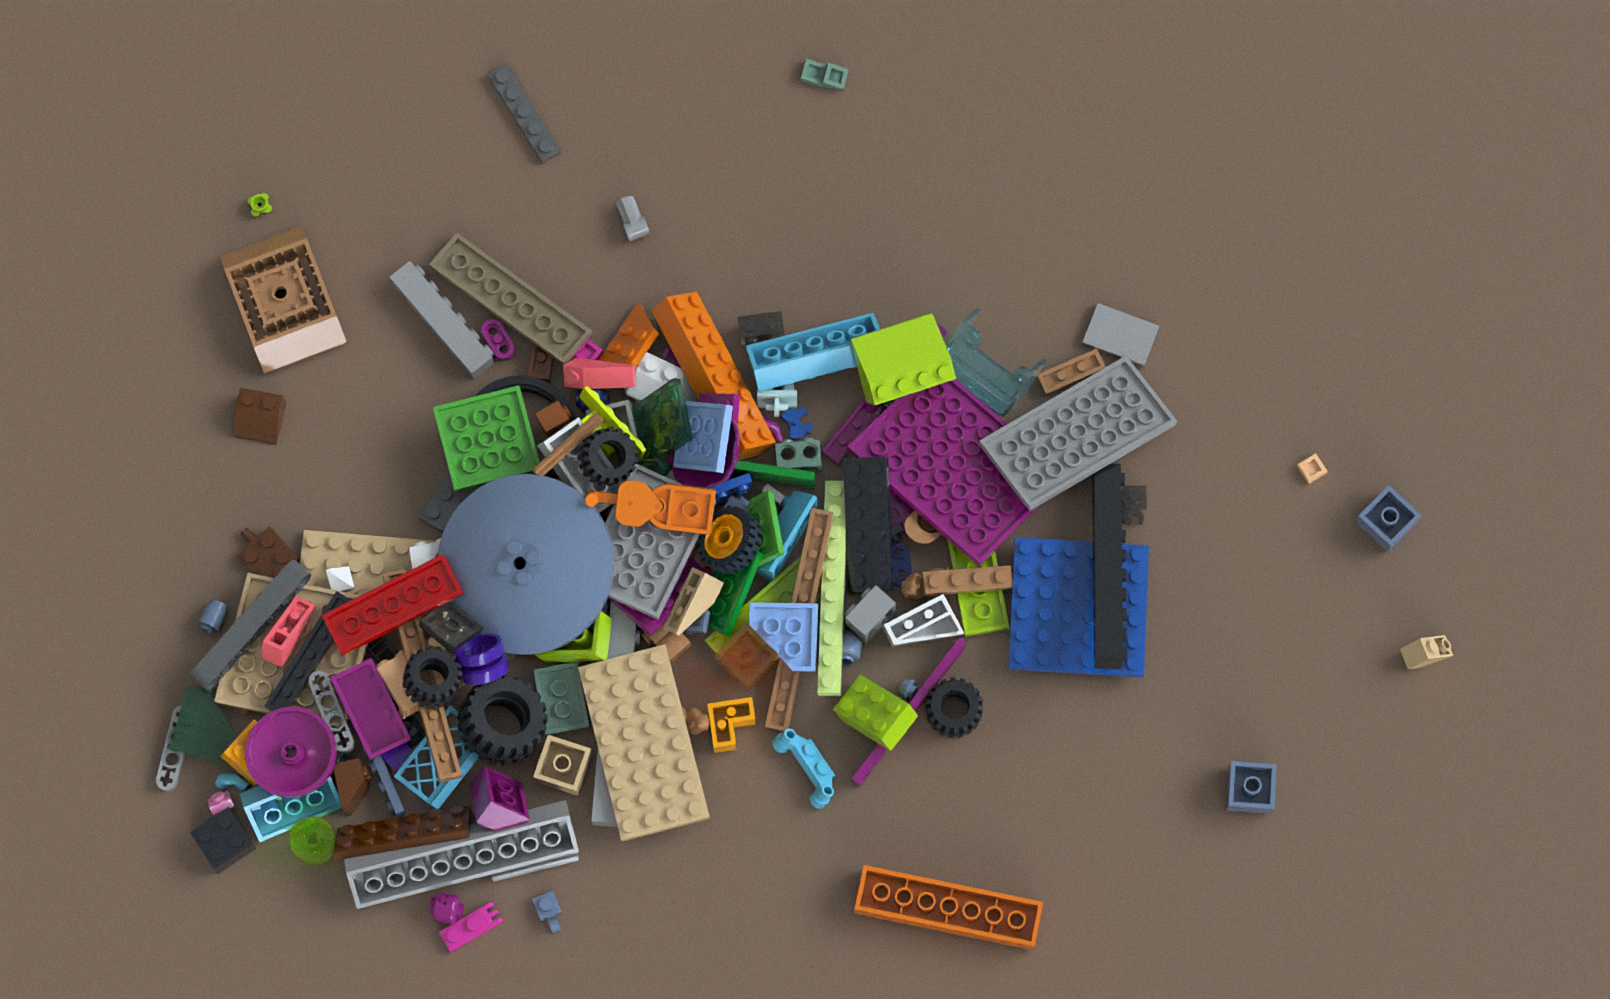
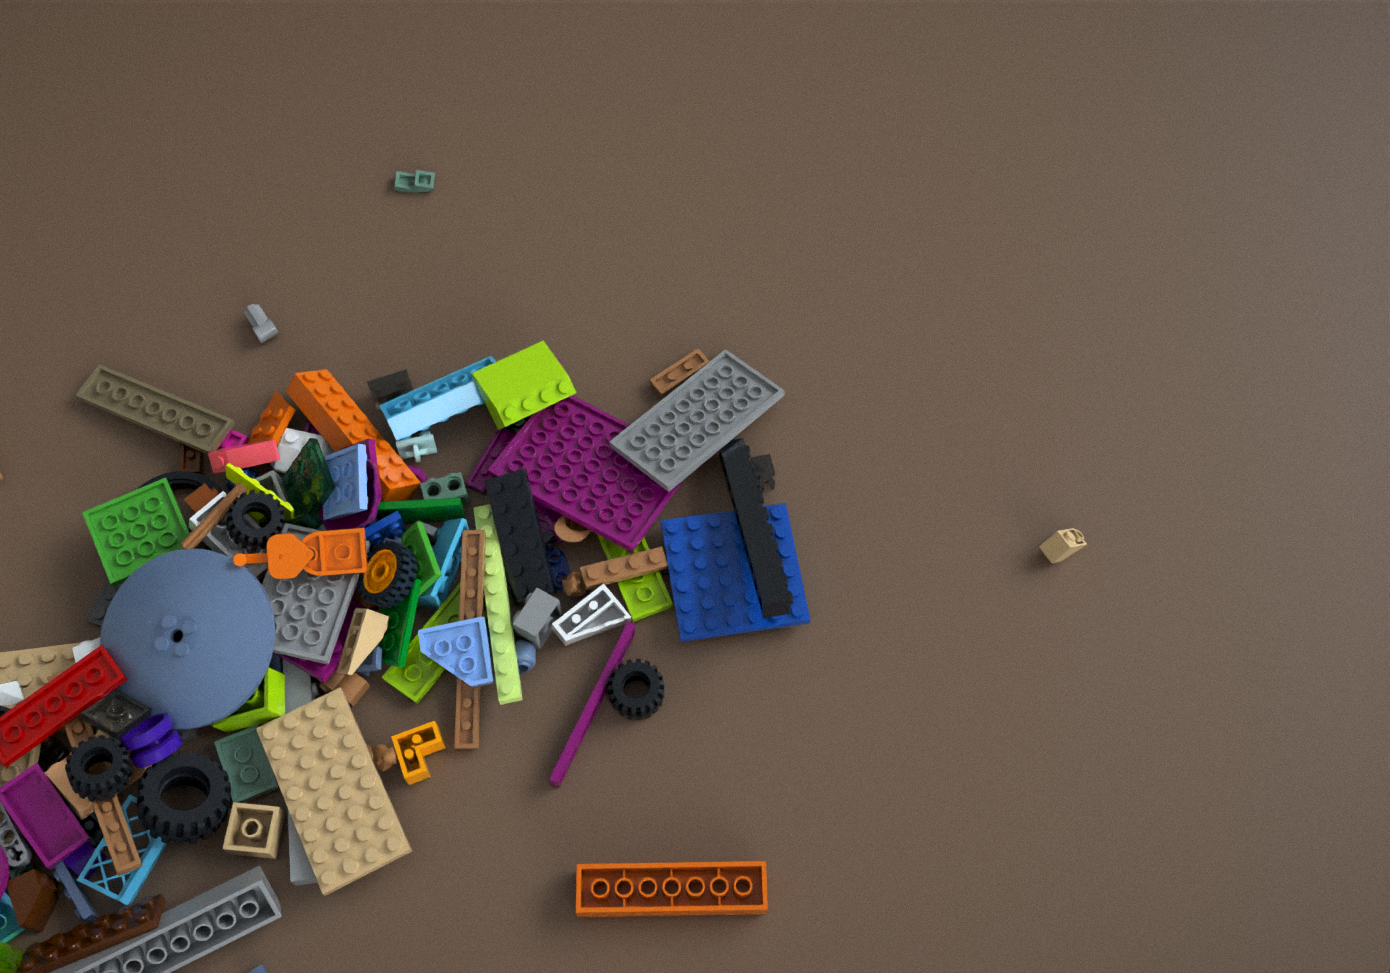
camera: 15 degrees left, 10 degrees down
(442, 320) = (92, 440): light grey brick -> none
(498, 800) = (188, 881): magenta slope -> none
(499, 340) = (149, 448): magenta plate -> none
(524, 113) = (153, 259): dark grey plate -> none
(535, 867) = (240, 942): light grey axle -> none
(746, 657) = (423, 683): clear orange brick -> none
(792, 418) = (437, 467): blue piece -> none
(811, 762) = (507, 773): medium azure plate -> none
(875, 712) = (560, 709): lime brick -> none
(908, 689) = (588, 682): sand blue plate -> none
(983, 375) = (602, 391): clear light blue windscreen -> none
(1120, 334) = (716, 334): light grey tile -> none
(1251, 787) = (939, 703): sand blue brick -> none
(1312, 468) = (913, 411): light nougat tile -> none
(1388, 518) = (994, 436): sand blue brick -> none

